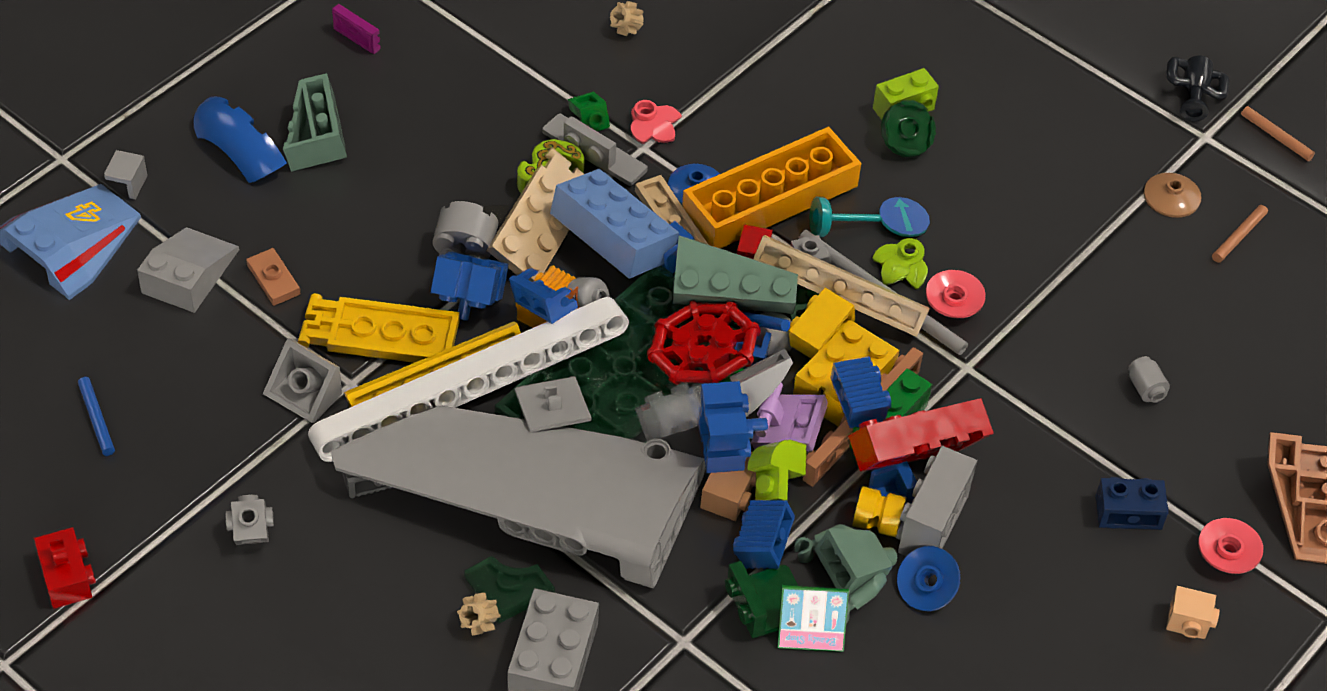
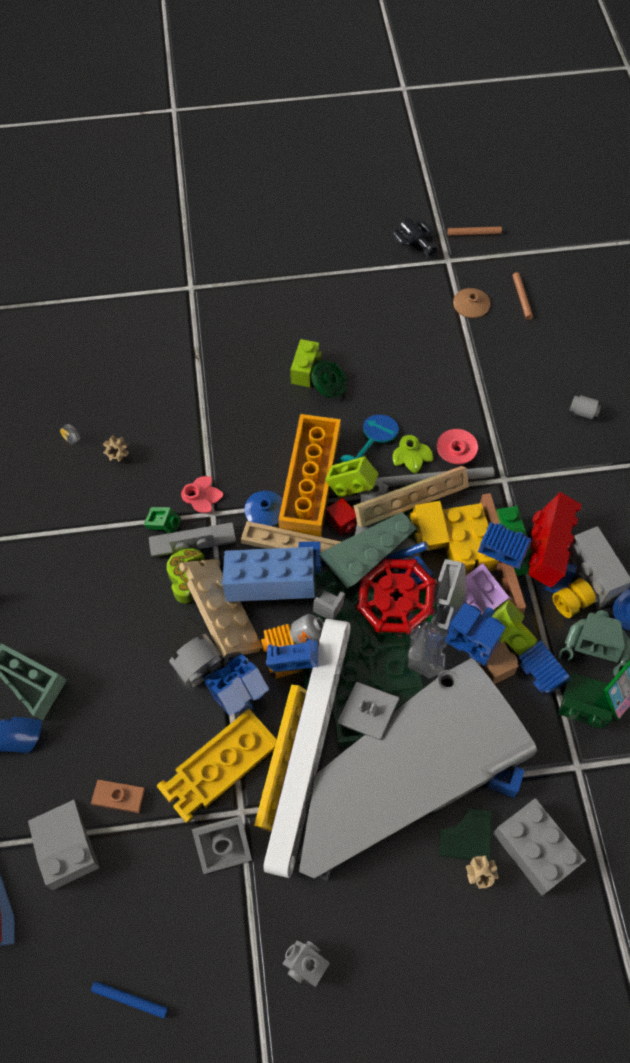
camera: 45 degrees left, 10 degrees up
(600, 581) = (507, 782): none -> blue panel
(634, 297) = (328, 604): none -> light grey panel
(798, 214) = (352, 477): none -> lime brick

